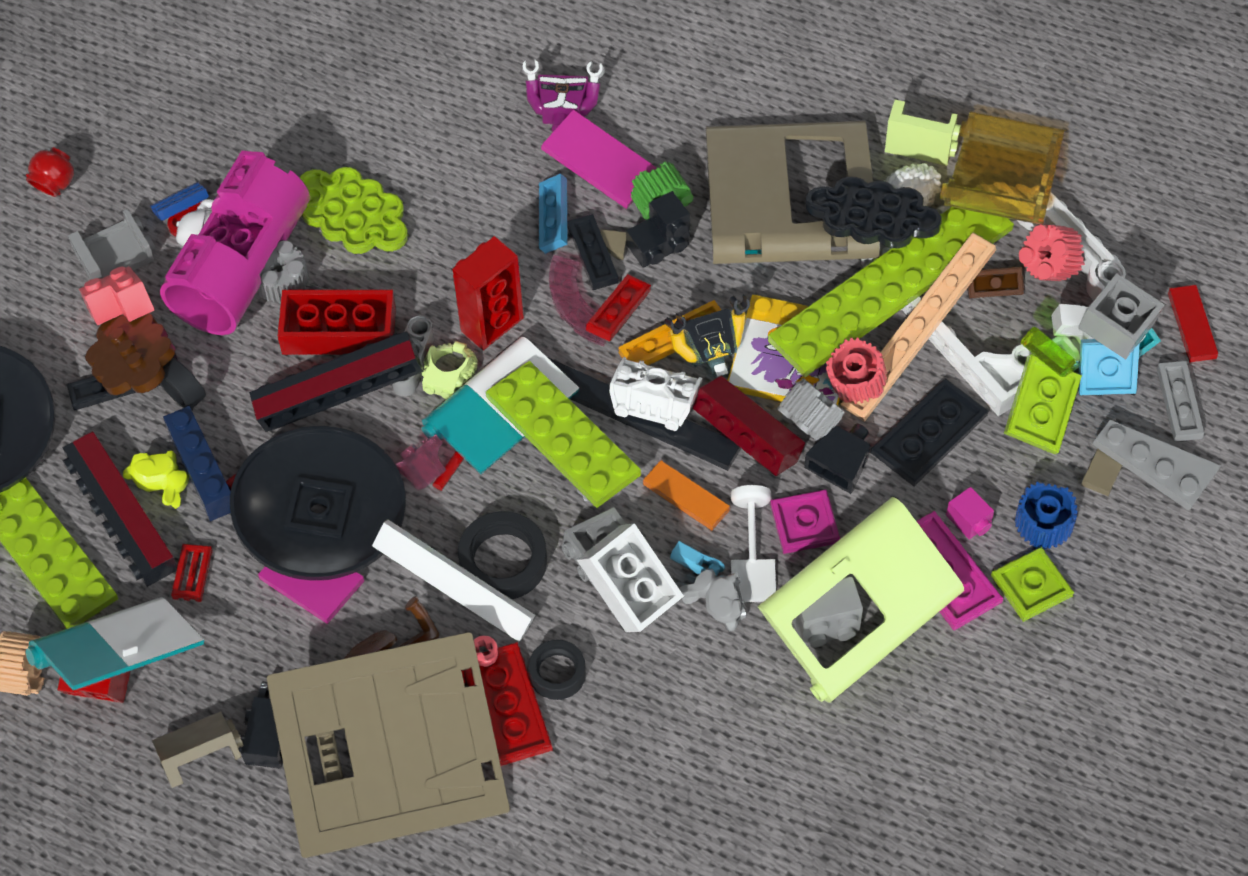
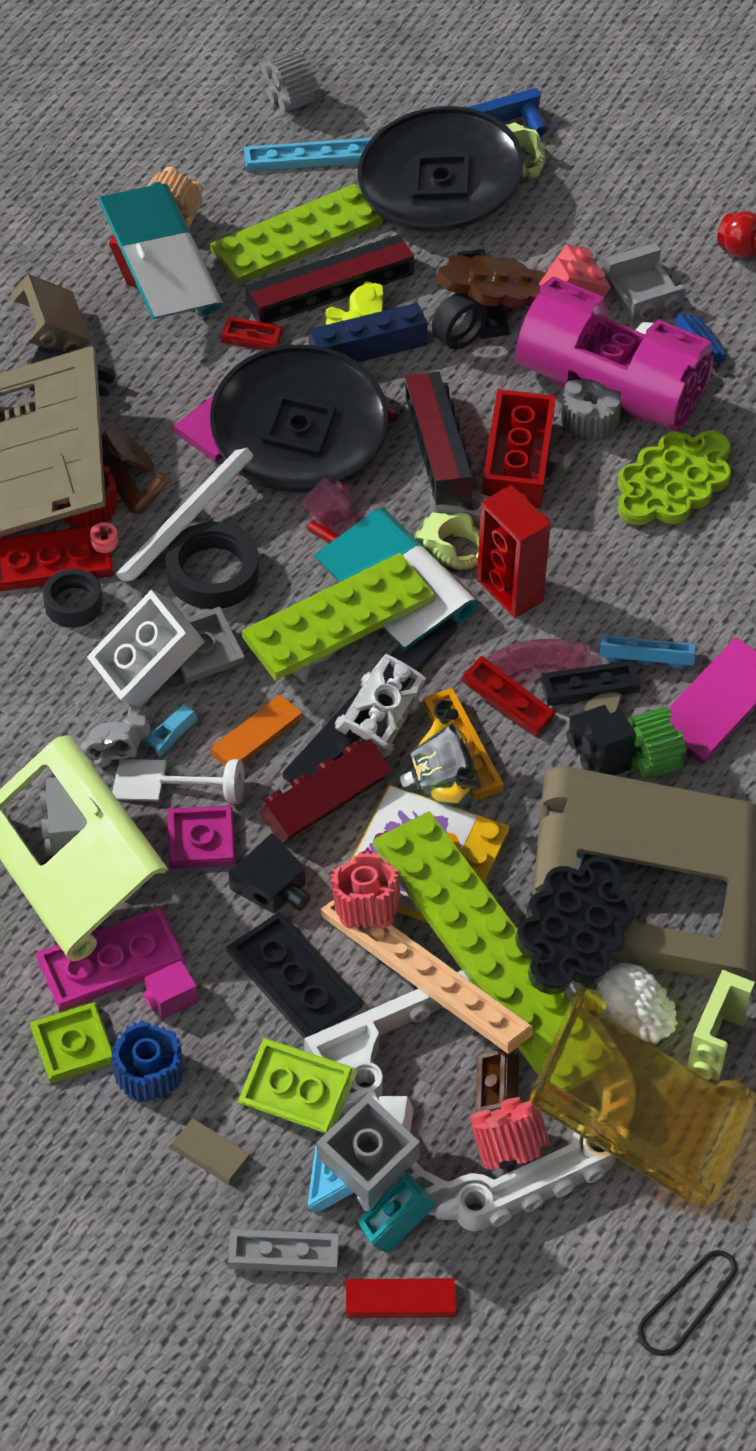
camera: 95 degrees right, 5 degrees down
(810, 410) = (325, 841): light grey brick -> none
(1049, 352) = (365, 1079): clear neon green slope -> none
(1144, 142) = (674, 1290): none -> black piece
(1163, 466) = (189, 1213): light grey wing -> none

